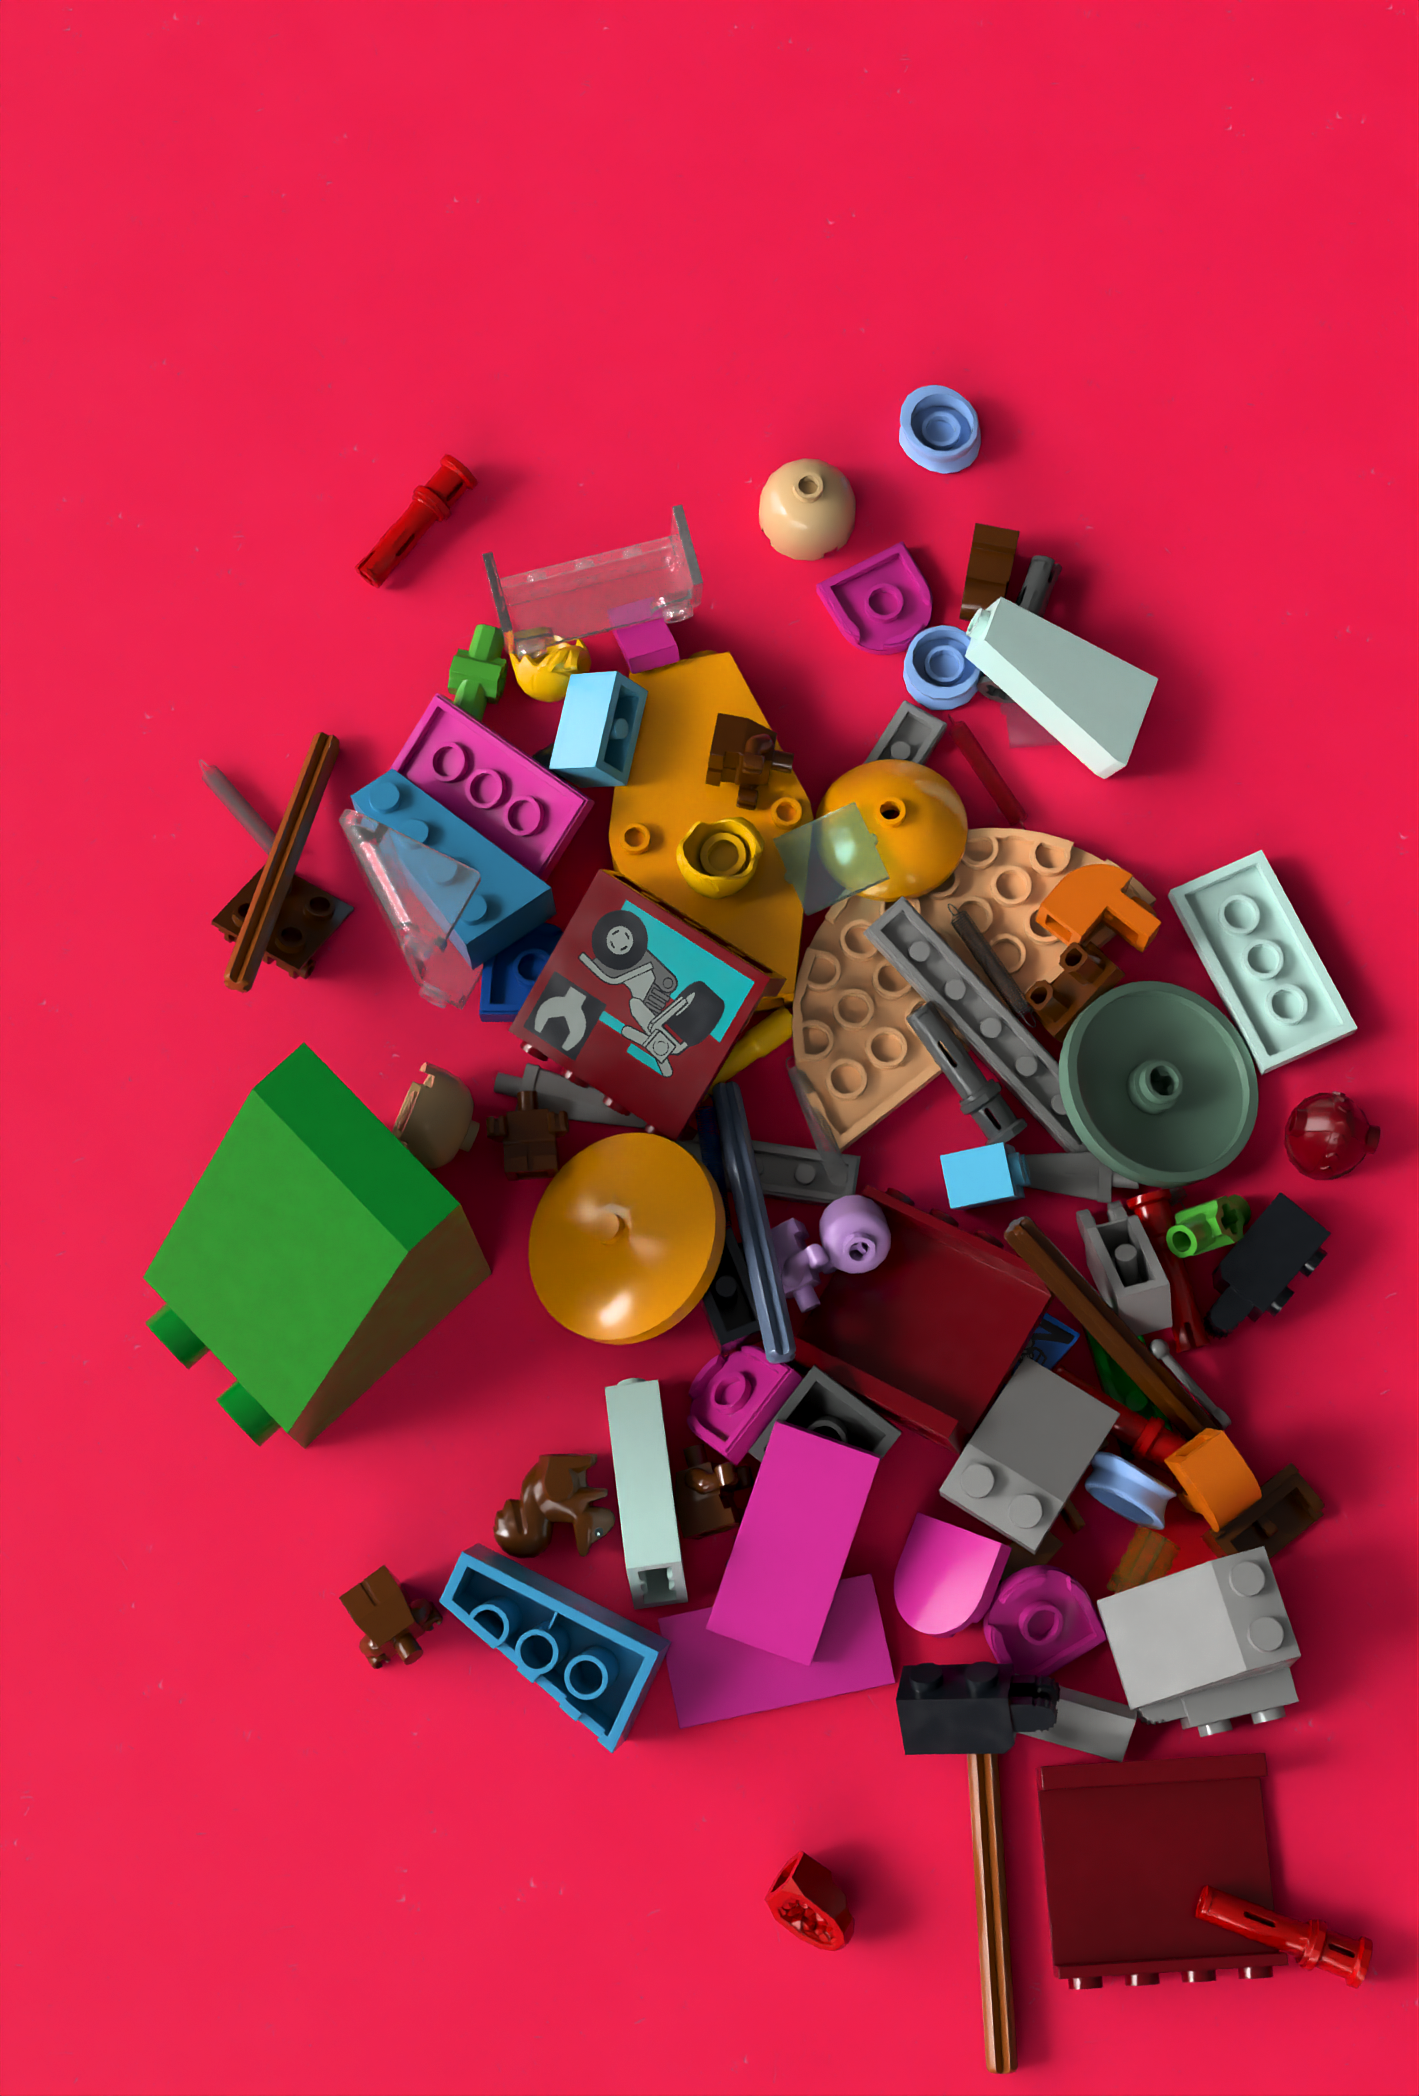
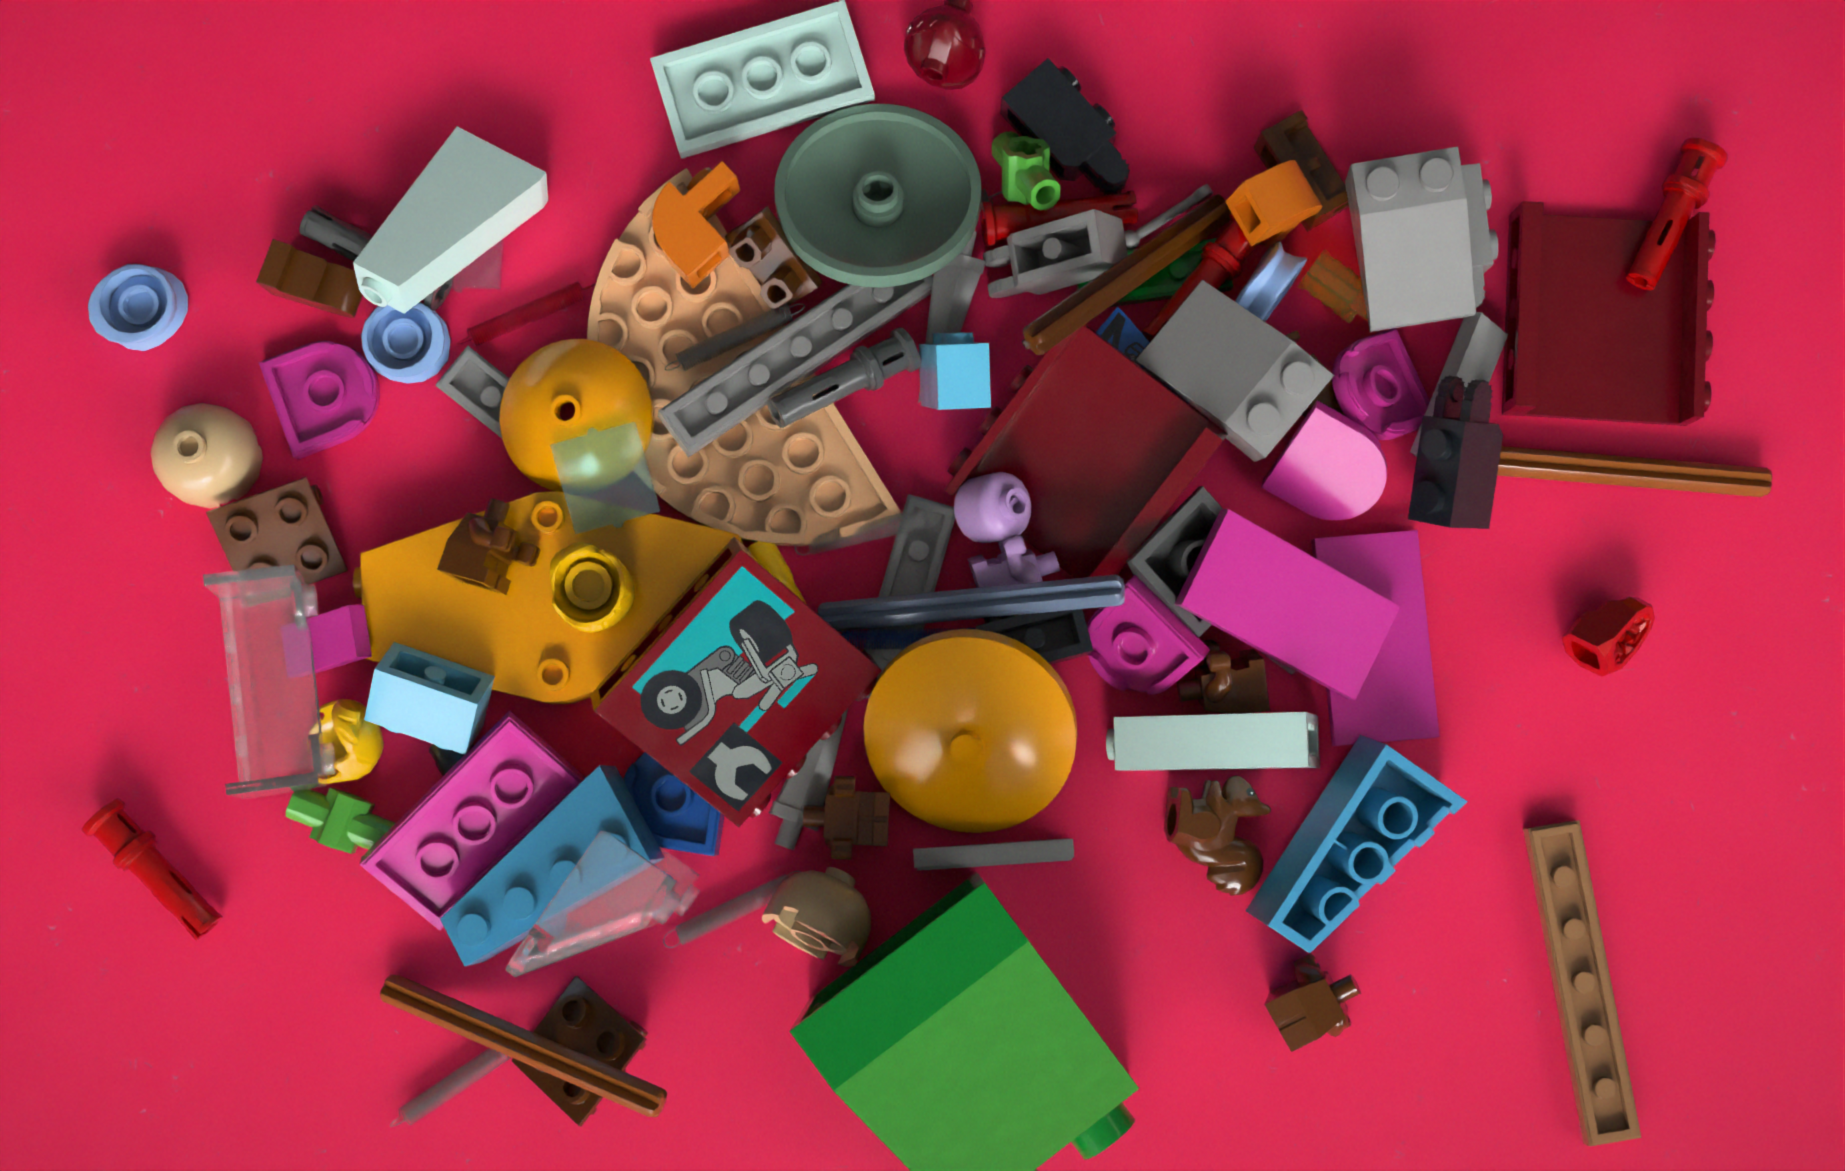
camera: 85 degrees left, 10 degrees up
(430, 1037) = (681, 935): none -> piece
(439, 1911) = (1582, 983): none -> medium nougat tile
(509, 1281) = (993, 854): none -> light grey tile
(740, 582) = (279, 530): none -> reddish brown hinge

